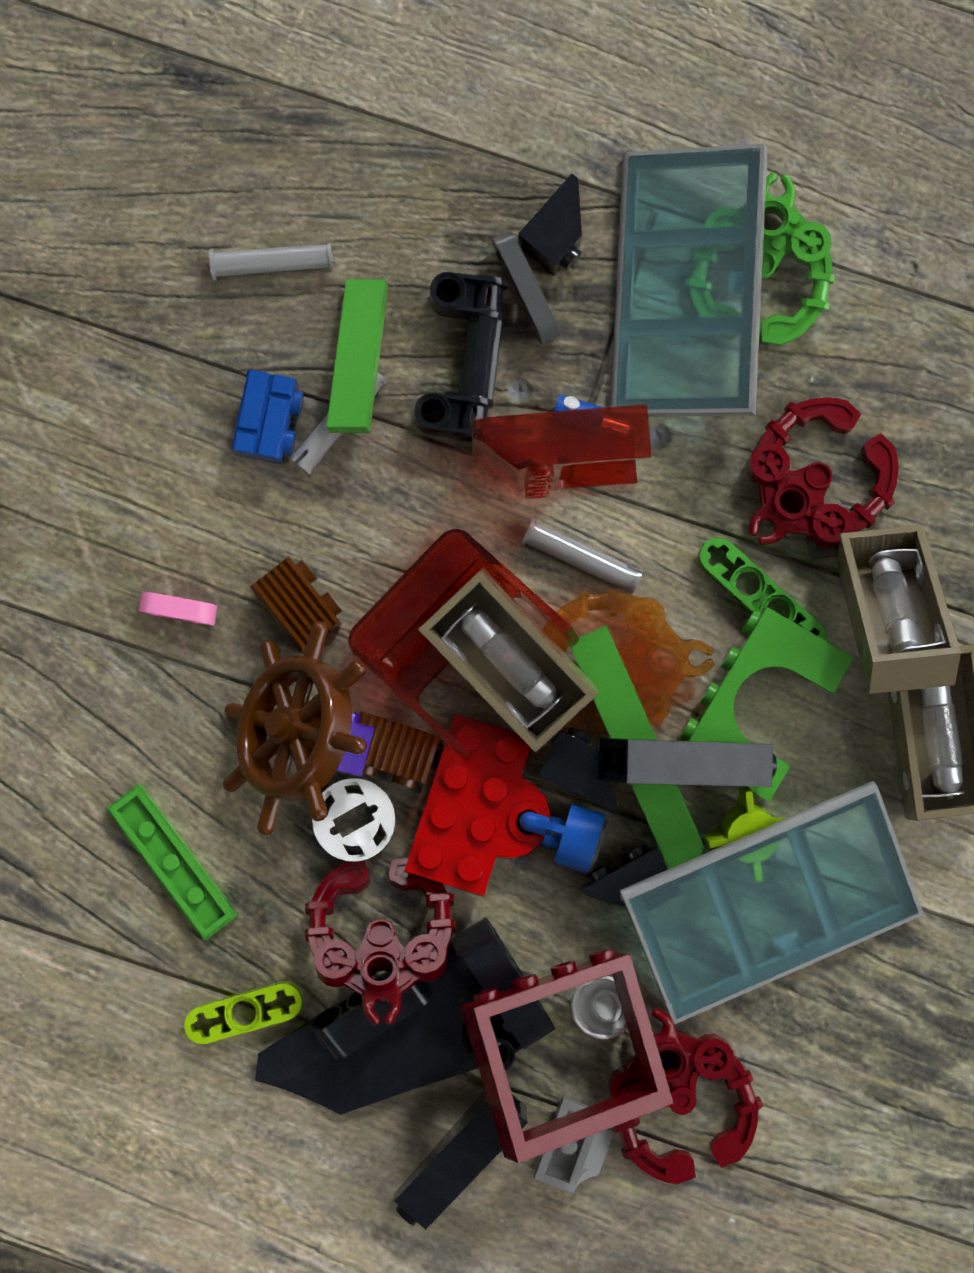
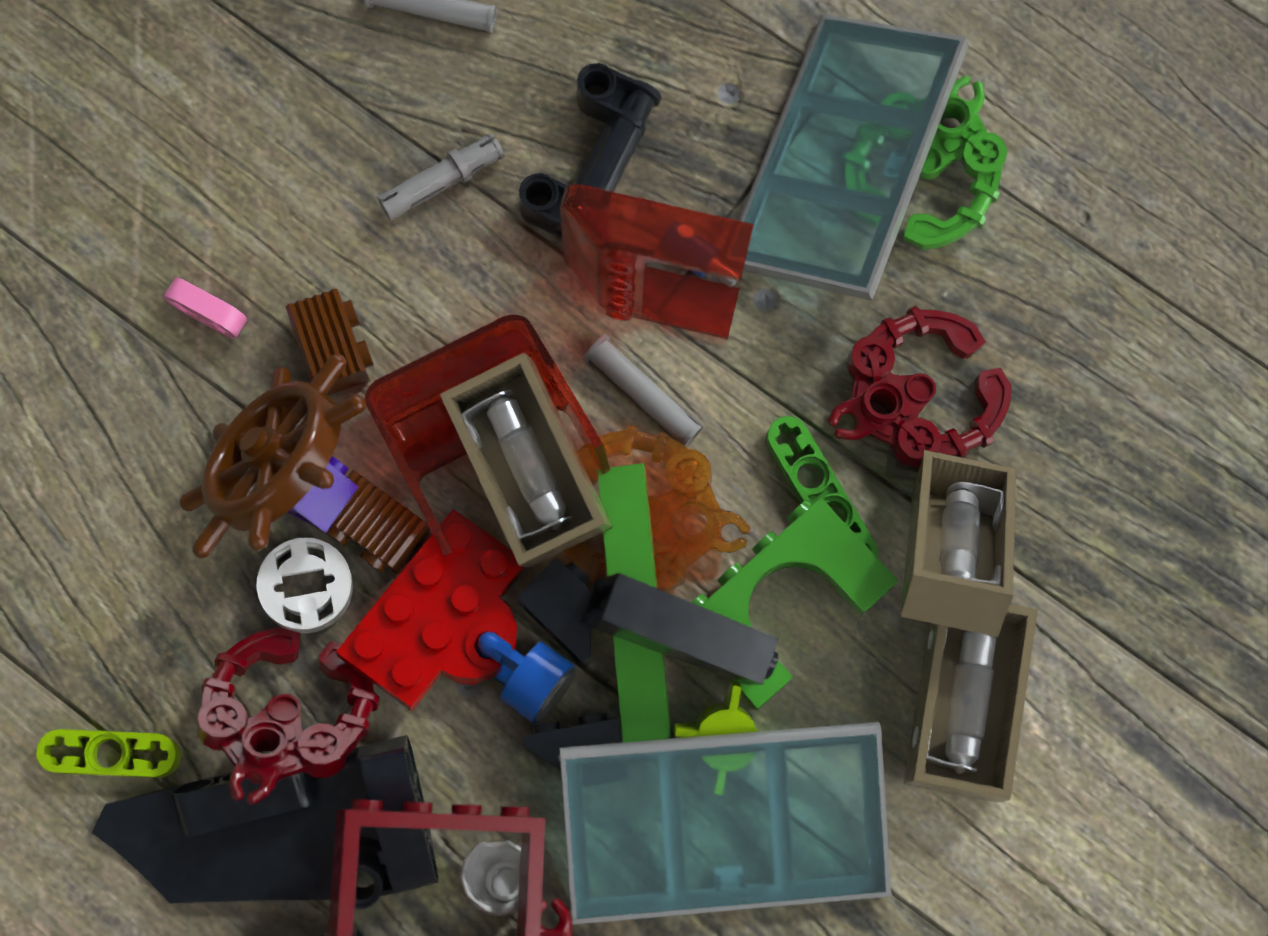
camera: 15 degrees right, 10 degrees down
(172, 861) = (97, 568): bright green tile -> none
(267, 417) = (368, 150): blue brick -> none
(357, 356) = (481, 119): bright green tile -> none
(525, 287) = (678, 108): dark grey beam -> none
(555, 229) = (725, 62): black slope -> none

